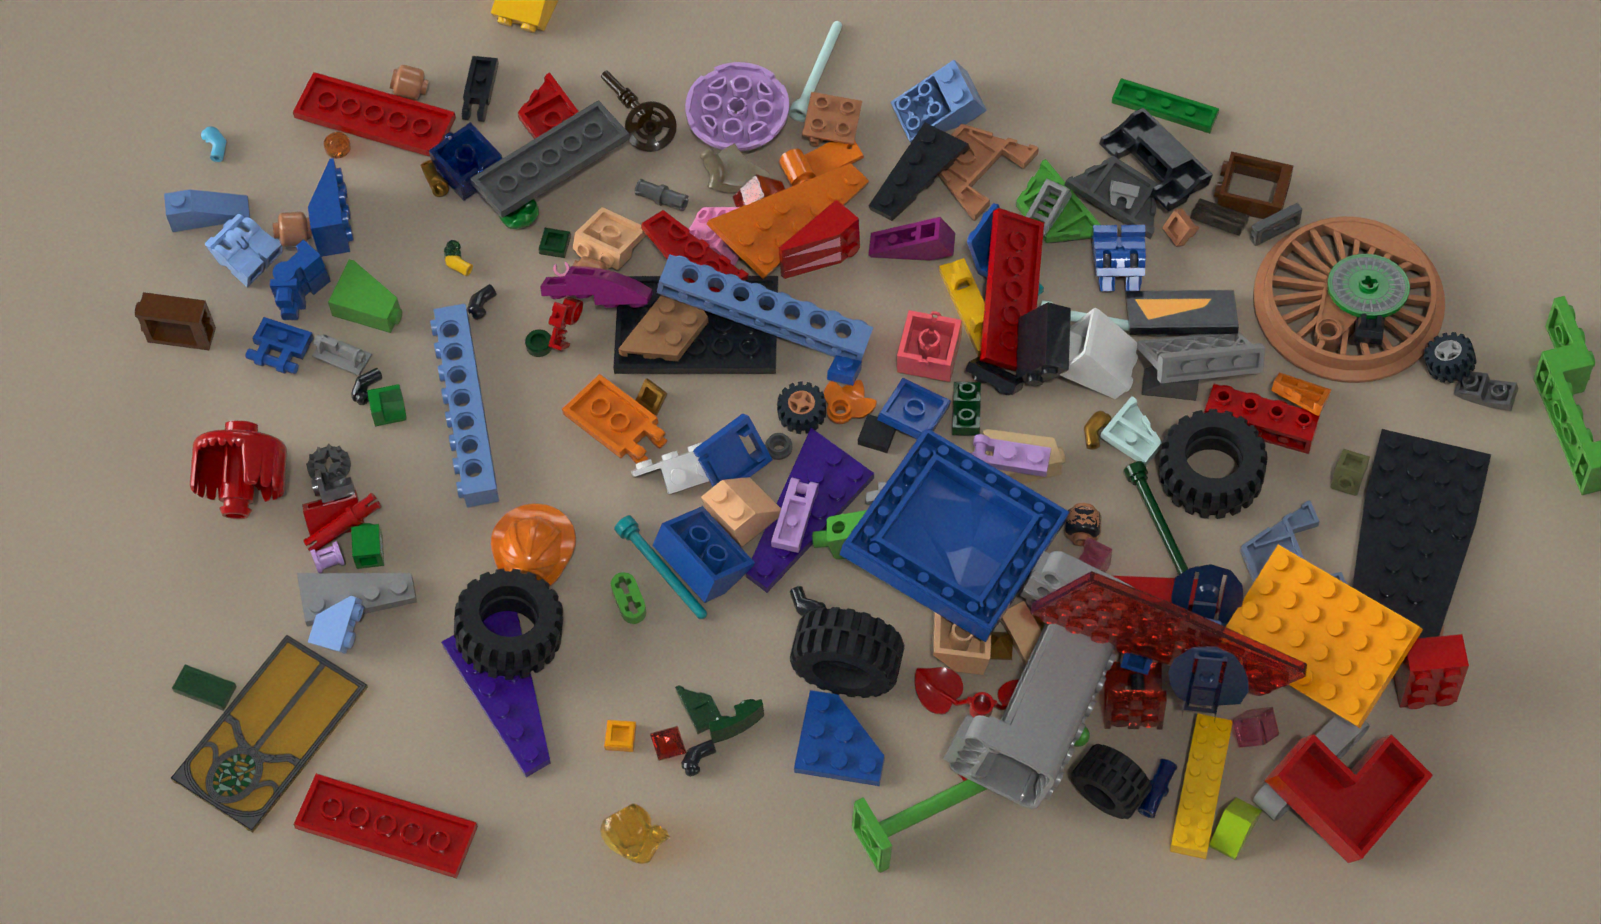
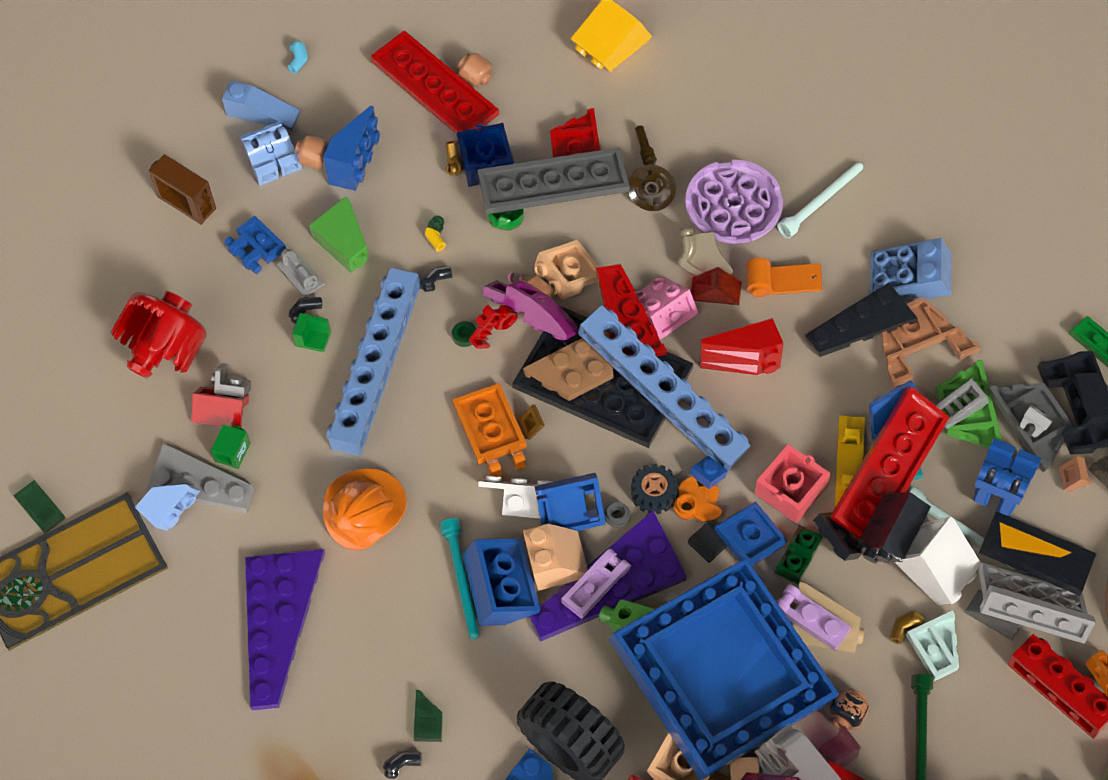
camera: 25 degrees right, 0 degrees up
(297, 278) = (294, 195): blue hips -> none
(327, 557) = (194, 441): lavender bush -> none
(337, 145) = (392, 98): clear orange tile -> none
(339, 467) = (246, 369): dark grey gear -> none
(352, 516) = (230, 415): red pin -> none
(386, 825) = (113, 698): red plate -> none
(479, 86) = (531, 96): black hinge -> none
(513, 593) = (308, 538): black tyre -> none
(554, 242) = (523, 253): dark green tile -> none
(620, 735) = (348, 711): light orange tile -> none
(633, 596) = (414, 590): bright green beam -> none
(661, 194) = (632, 250): dark grey pin -> none
(668, 743) = (382, 738): clear red slope -> none
(746, 715) = (460, 746): dark green slope -> none
(766, 224) = (704, 313): orange wing -> none
(803, 604) = (565, 670): black arm -> none
(831, 119) = (810, 245): nougat hinge -> none
(914, 241) = (831, 384): magenta slope -> none
(1219, 433) = (1004, 676): black tyre -> none

